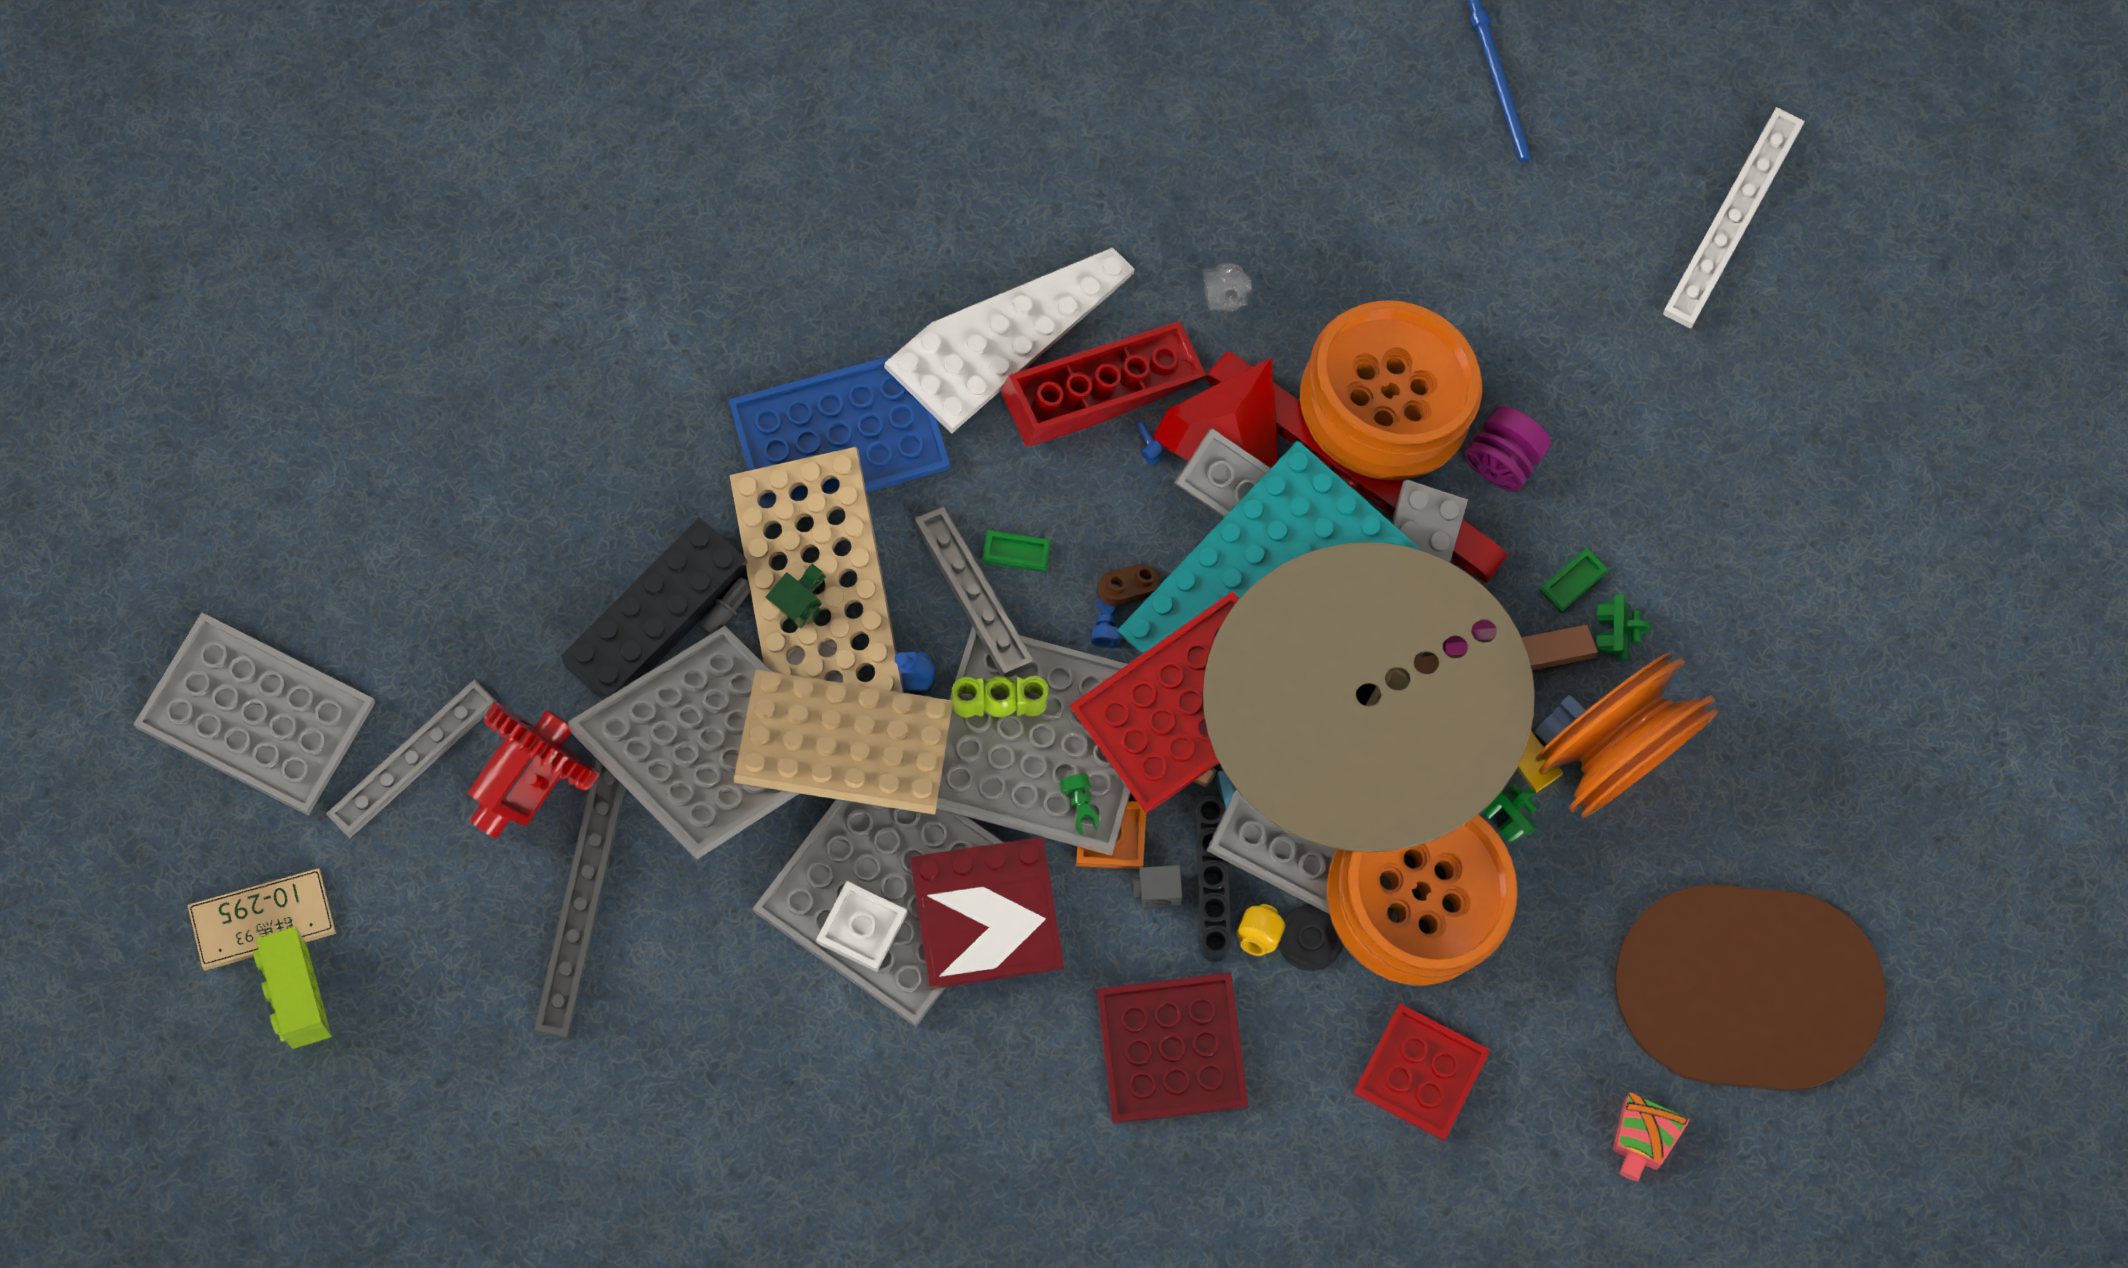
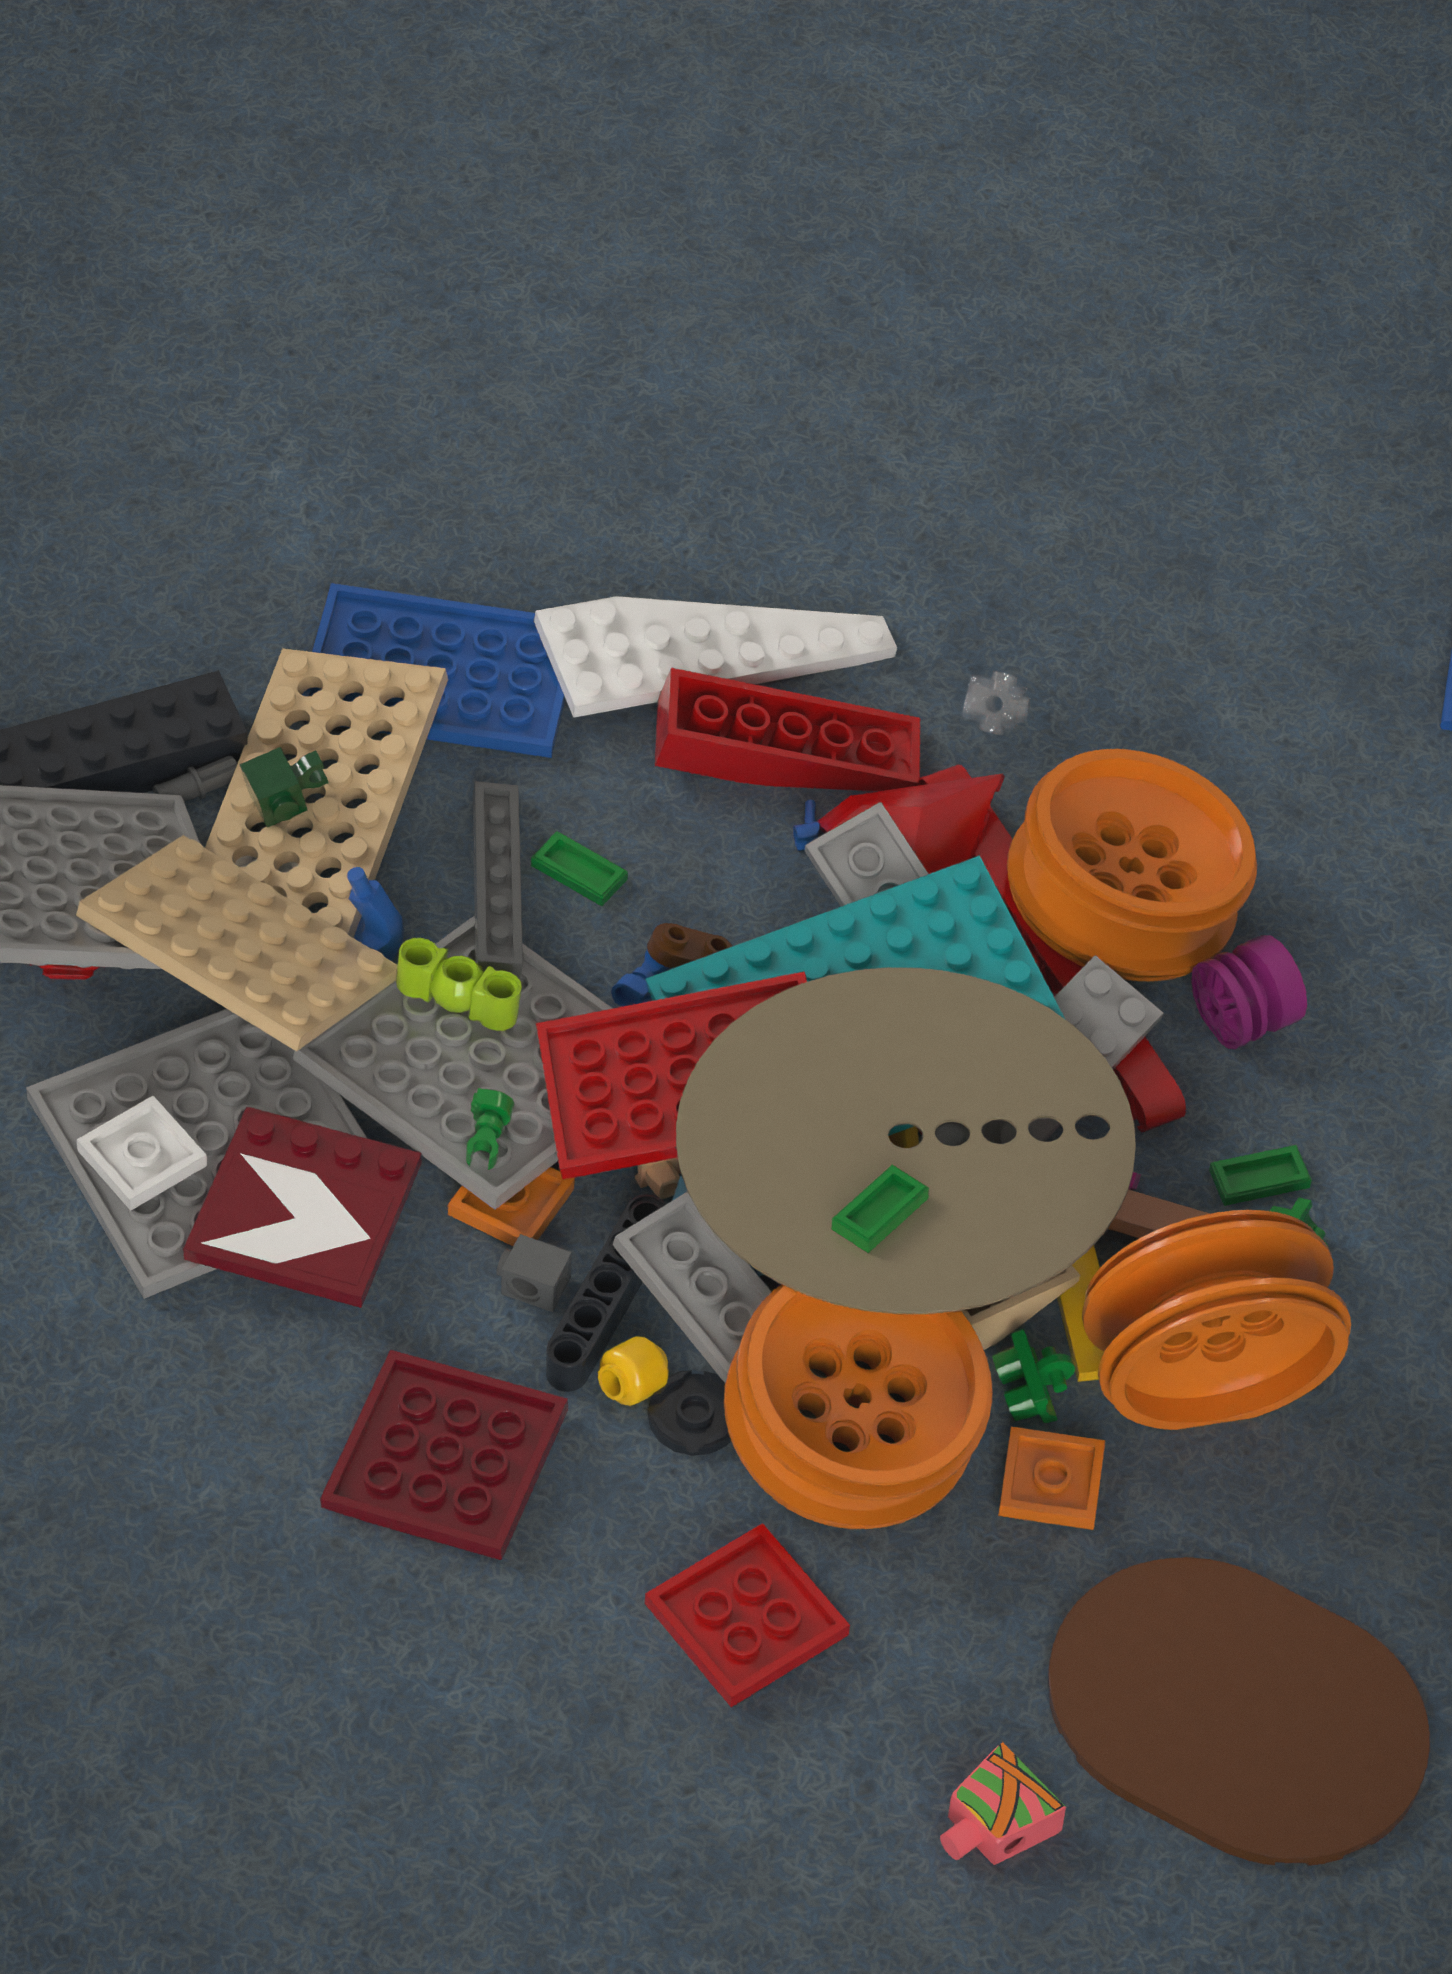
camera: 25 degrees right, 20 degrees down
(1385, 764) = (880, 1208): none -> green tile
(1558, 877) = (1052, 1478): none -> orange plate

